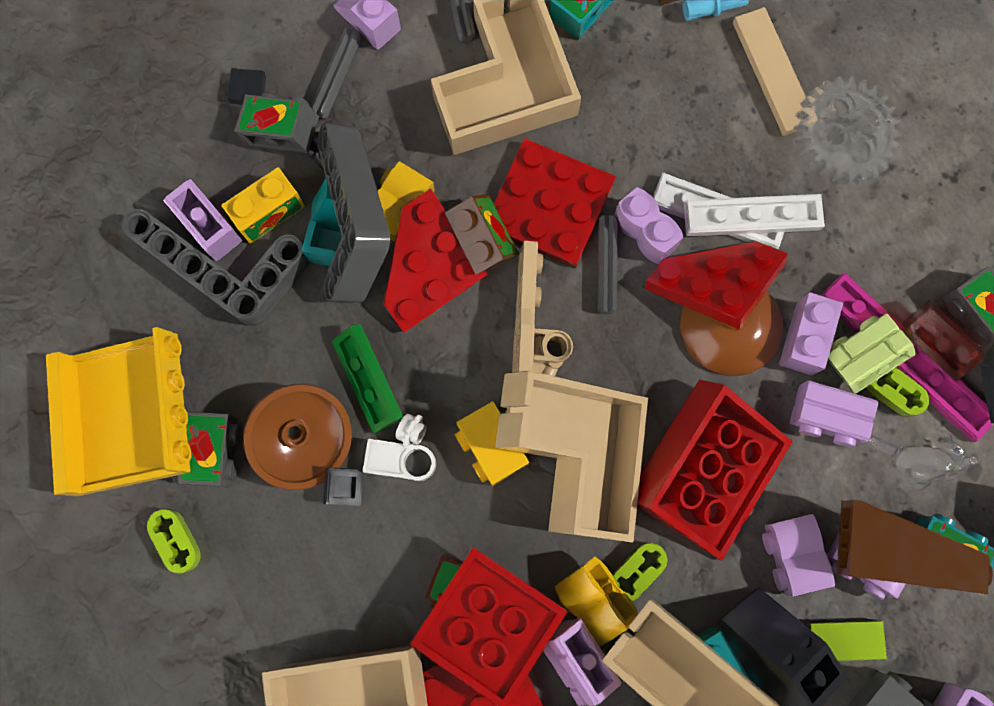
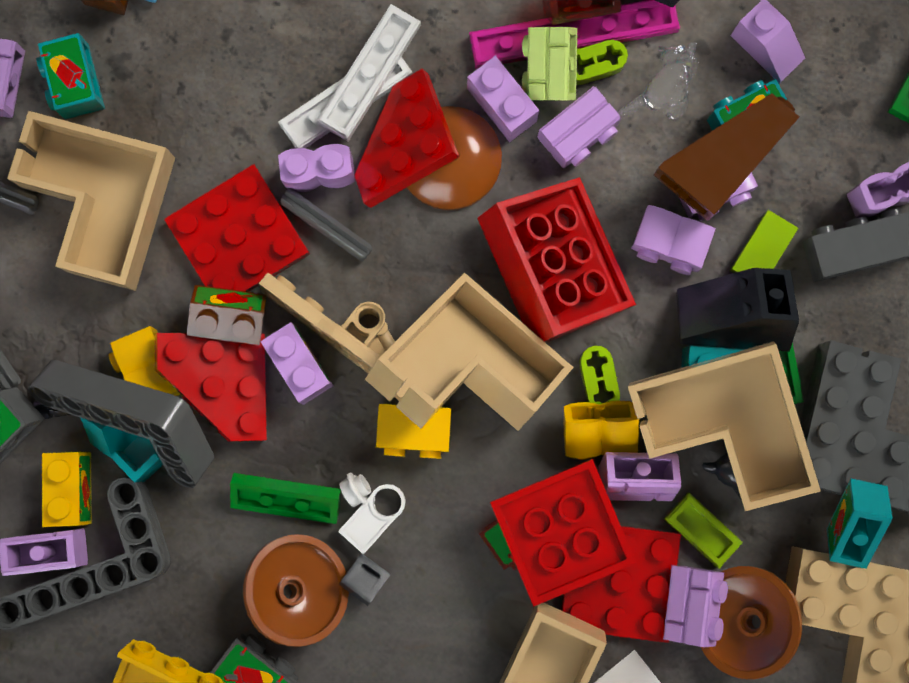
camera: 55 degrees left, 5 degrees up
(481, 315) = (296, 363): none -> lavender brick

